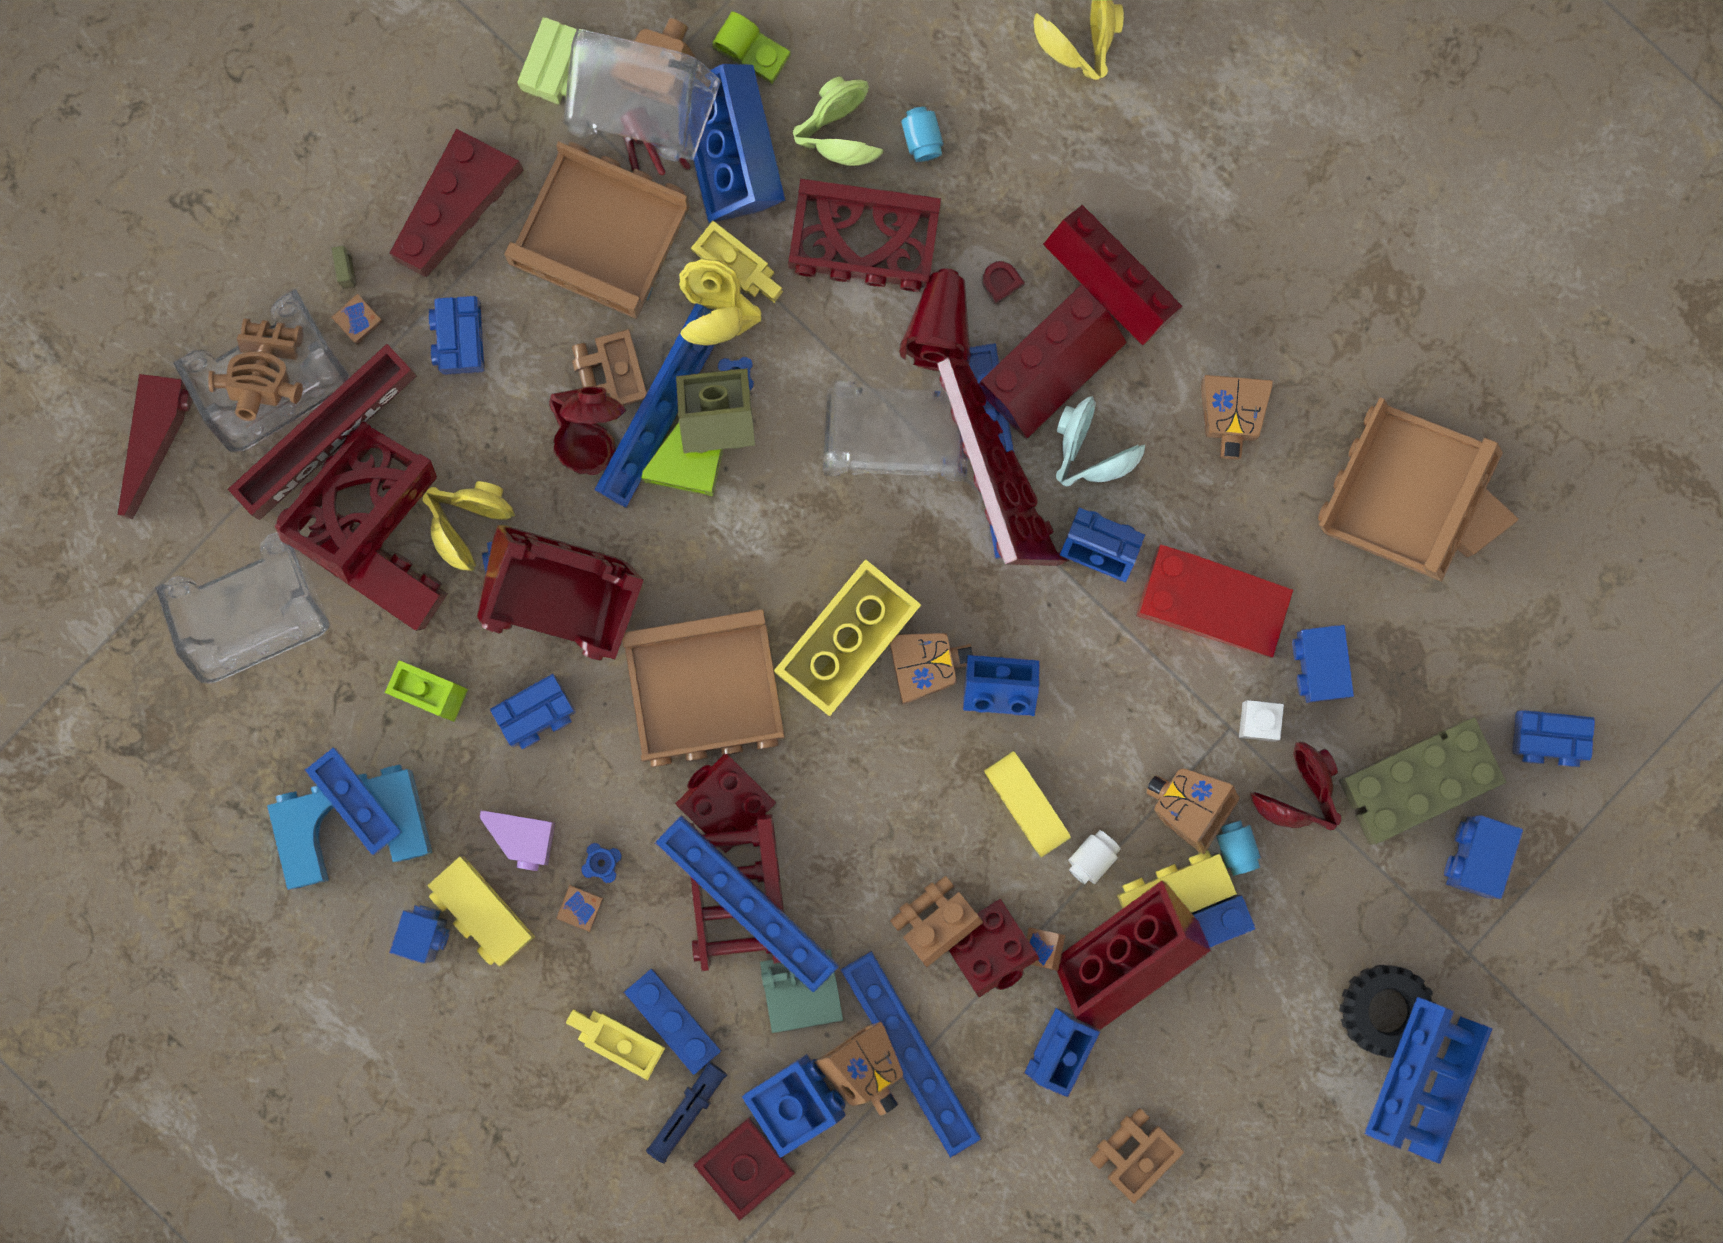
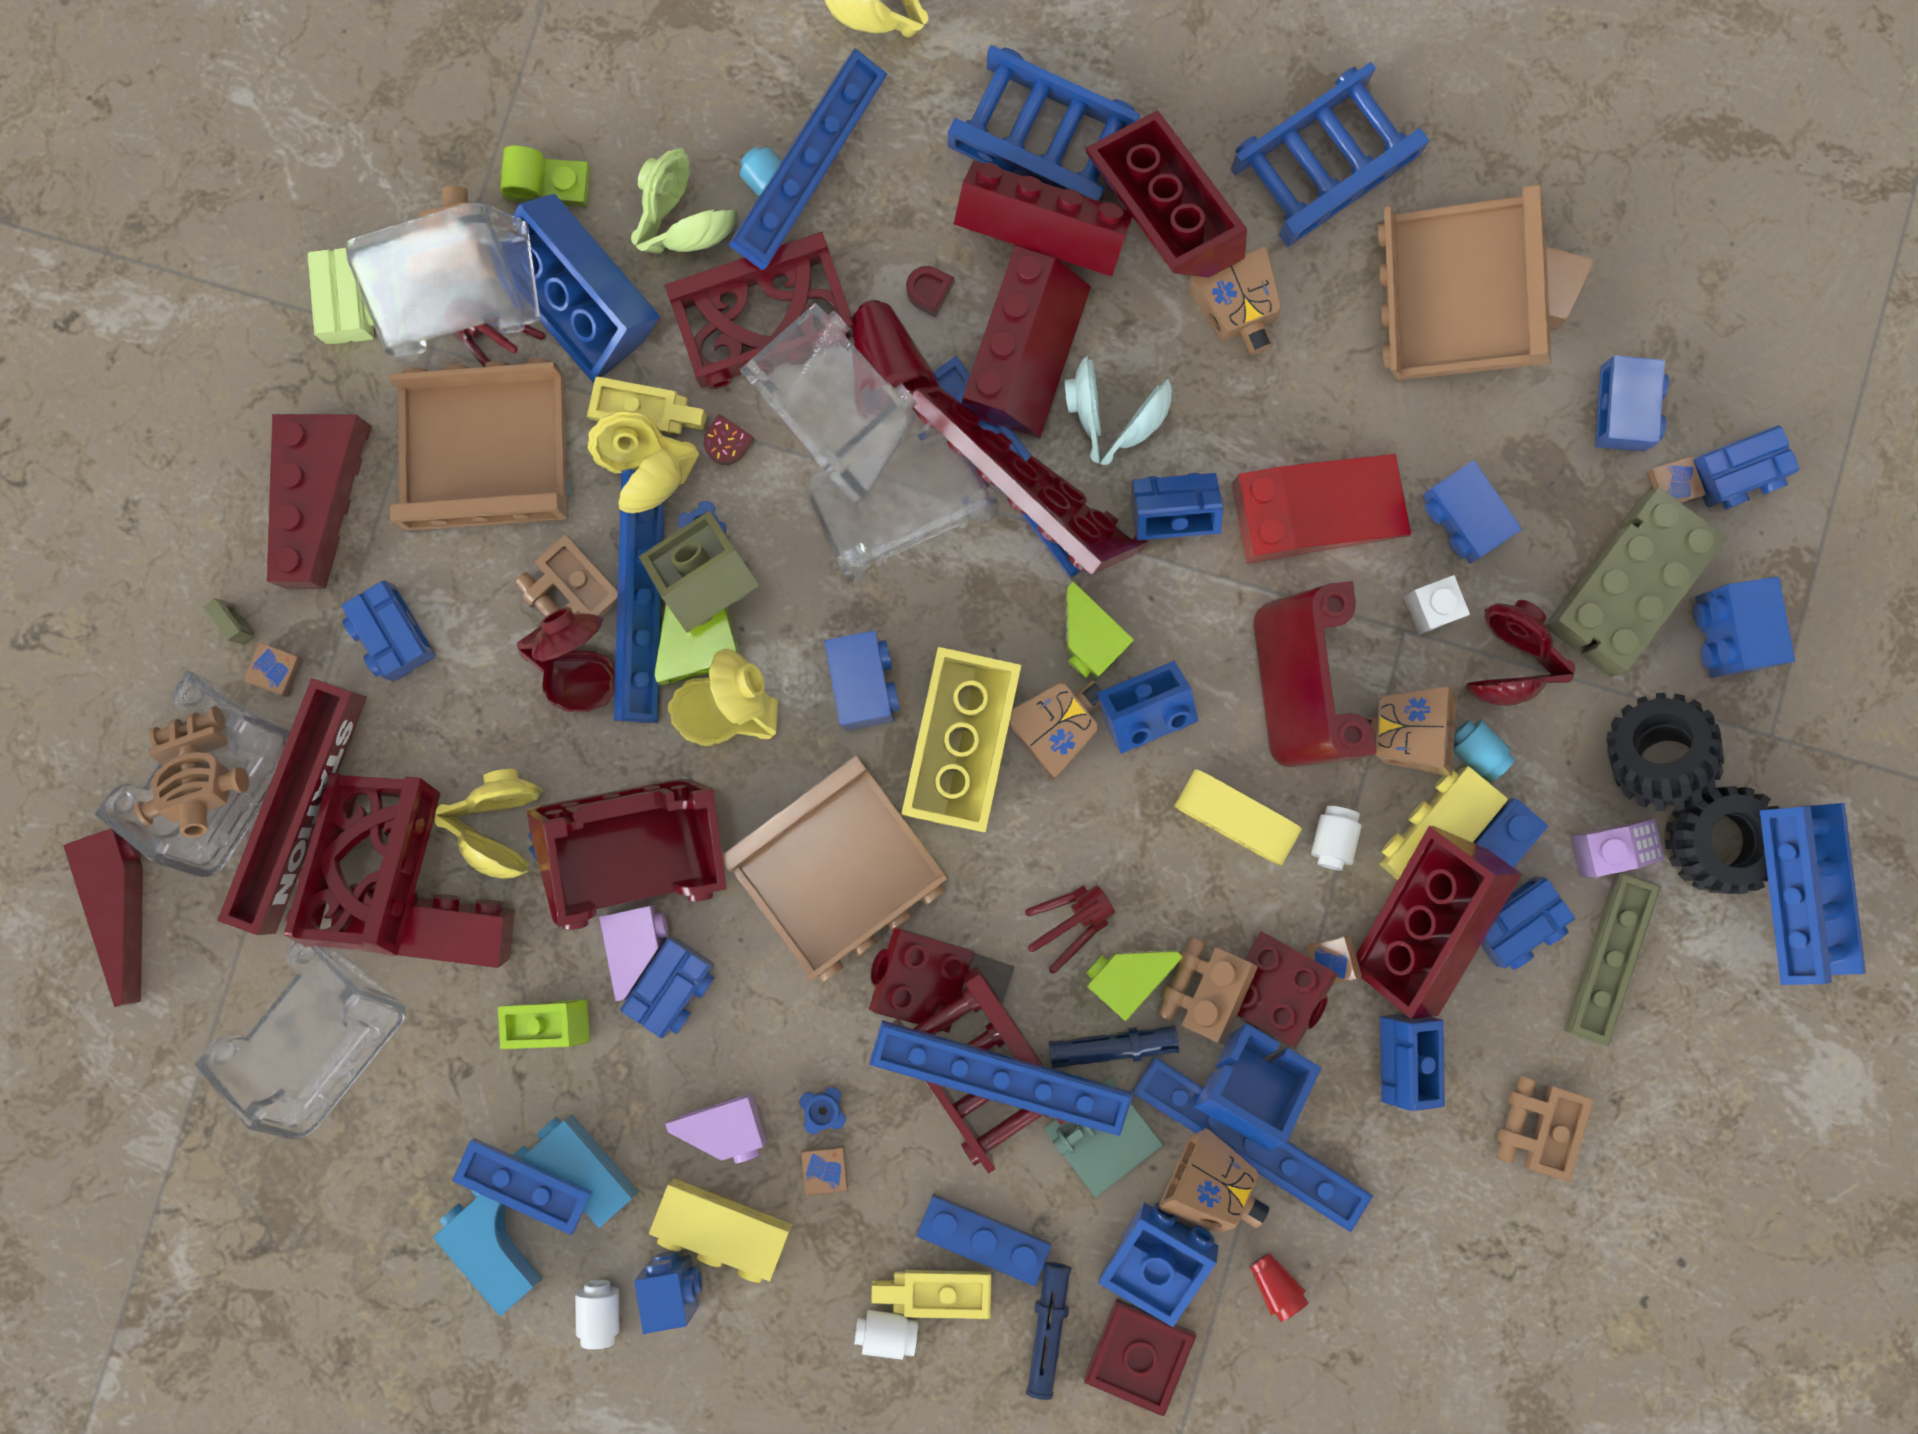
camera: 25 degrees left, 0 degrees up
(357, 926) = (597, 1314): none -> white brick
(522, 665) = (631, 945): none -> lavender slope
(564, 1052) = (886, 1334): none -> white brick
(684, 519) = (724, 704): none -> light yellow animal
(784, 827) = (996, 973): none -> dark brown plate
(786, 320) = (726, 441): none -> dark red tile
(794, 555) = (859, 680): none -> piece
(851, 930) = (1123, 1045): none -> dark blue pin
(874, 1169) = (1279, 1289): none -> red cone
(880, 815) = (1091, 908): none -> dark red plant
(881, 333) = (833, 399): none -> clear windscreen
(881, 881) = (1129, 977): none -> lime slope
(930, 1014) = (1258, 1095): none -> blue piece
(959, 137) = (808, 159): none -> blue tile
(987, 610) = (1091, 635): none -> lime slope
(1111, 750) = (1298, 679): none -> dark red windscreen
(1116, 208) = (974, 141): none -> blue fence
(1201, 993) = (1526, 920): none -> blue brick
(1215, 308) = (1170, 197): none -> dark red slope
(1256, 1056) = (1612, 958): none -> olive tile
(1305, 975) = (1617, 848): none -> lavender slope
(1373, 894) = (1665, 721): none -> black tyre
(1382, 361) = (1332, 194): none -> blue fence
(1491, 643) = (1631, 403): none -> brick
(1498, 721) = (1678, 479): none -> tile

